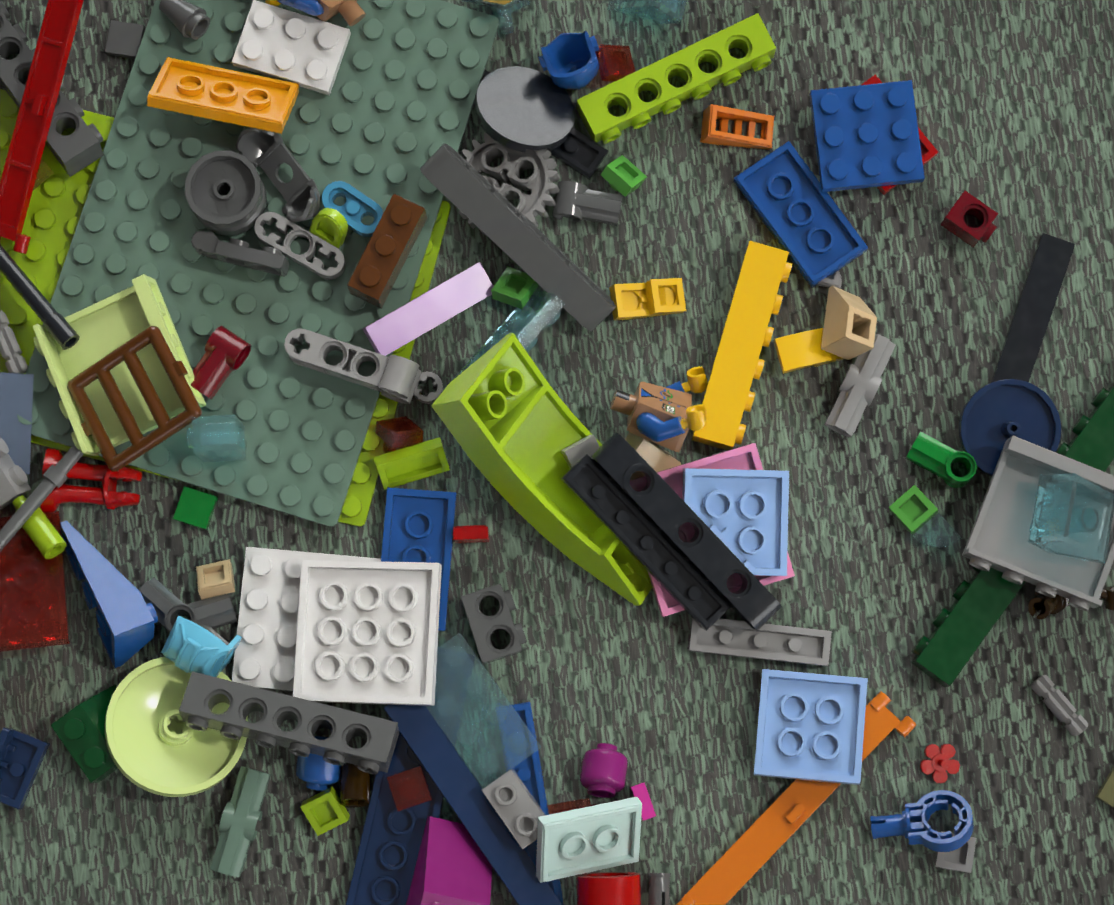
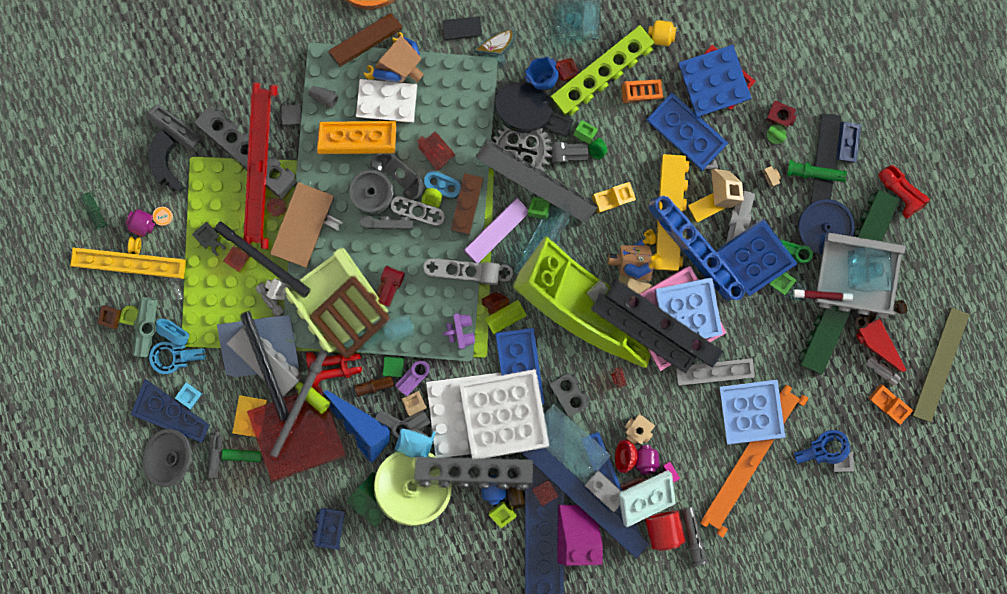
camera: 10 degrees left, 5 degrees up
(20, 325) = (276, 289): none -> white tile
(57, 178) = (276, 212): none -> clear red plate
(94, 226) = (302, 225): none -> medium nougat tile
(147, 232) = (333, 222): none -> light grey bush
(152, 533) = (373, 386): none -> reddish brown axle
(222, 534) = (412, 378): none -> medium lavender piece
(240, 821) = (458, 530): sand green piece -> none
(327, 452) = (460, 321): none -> medium lavender hips
(354, 147) = (435, 150): none -> clear red piece
(471, 534) = (546, 348): red tile -> none
(567, 755) = (625, 456): none -> red hat
(586, 613) = (618, 377): none -> clear red plate
(611, 703) = (644, 424): none -> tan brick
(638, 209) = (597, 148): none -> green tile
(773, 413) = (696, 248): none -> blue beam
(794, 36) = (662, 32): none -> yellow head
(875, 453) = (756, 257): none -> blue plate
(932, 321) = (772, 176): none -> tan plate
(939, 762) = (825, 415): red plant -> none
(955, 251) = (776, 134): none -> bright green plate
(980, 544) = (823, 295): none -> dark red bar
(996, 324) = (806, 171): none -> green pin
(1060, 768) = (890, 404): none -> orange slope
(1062, 652) = (878, 341): none -> red slope
(1078, 291) = (848, 142): none -> dark blue plate

